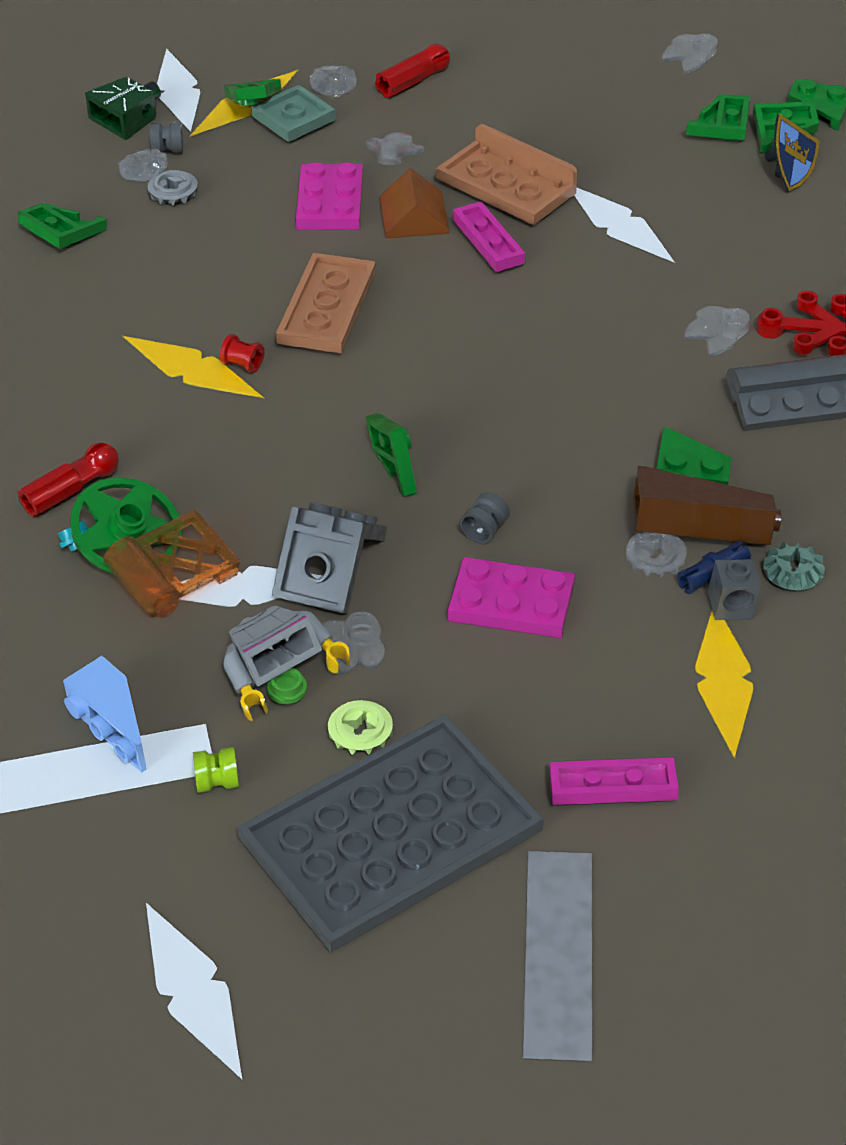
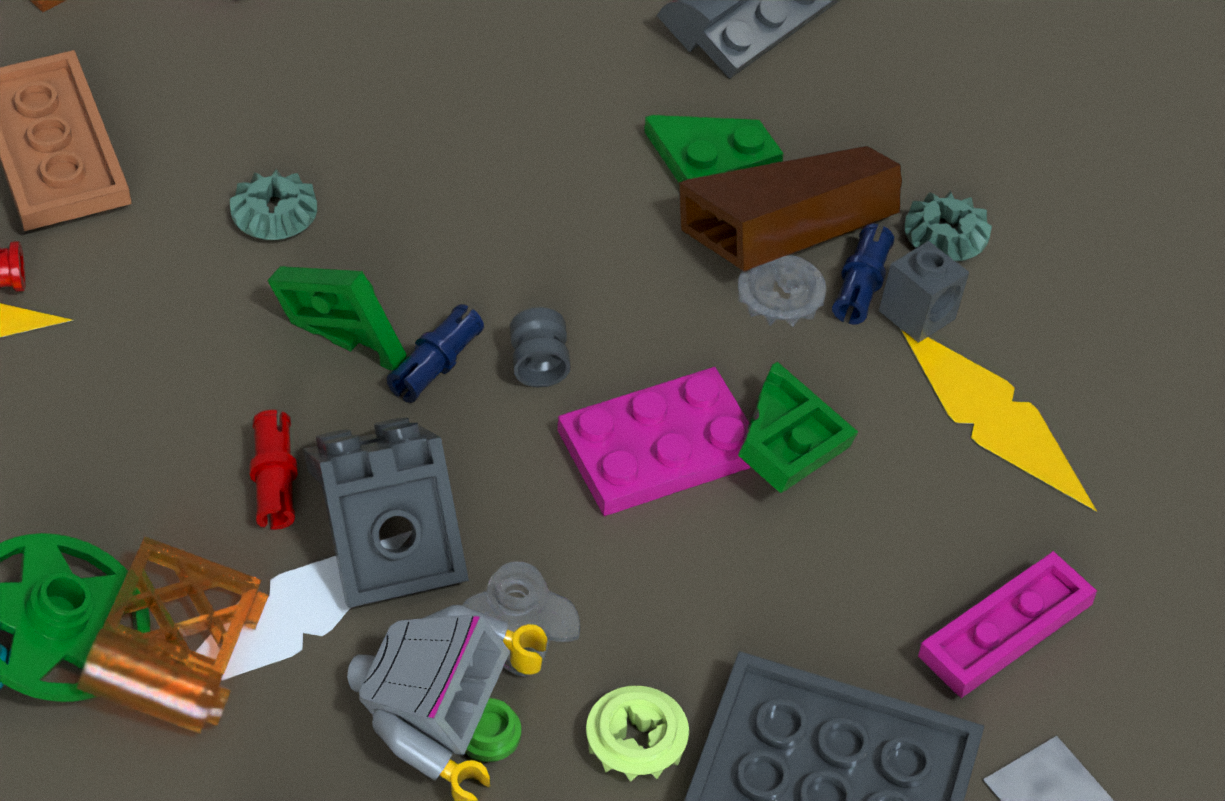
camera: 40 degrees left, 5 degrees up
(298, 499) = (273, 469): none -> red pin
(414, 394) = (291, 215): none -> sand green gear
(429, 496) = (435, 353): none -> dark blue pin
(582, 625) = (792, 431): none -> green wing

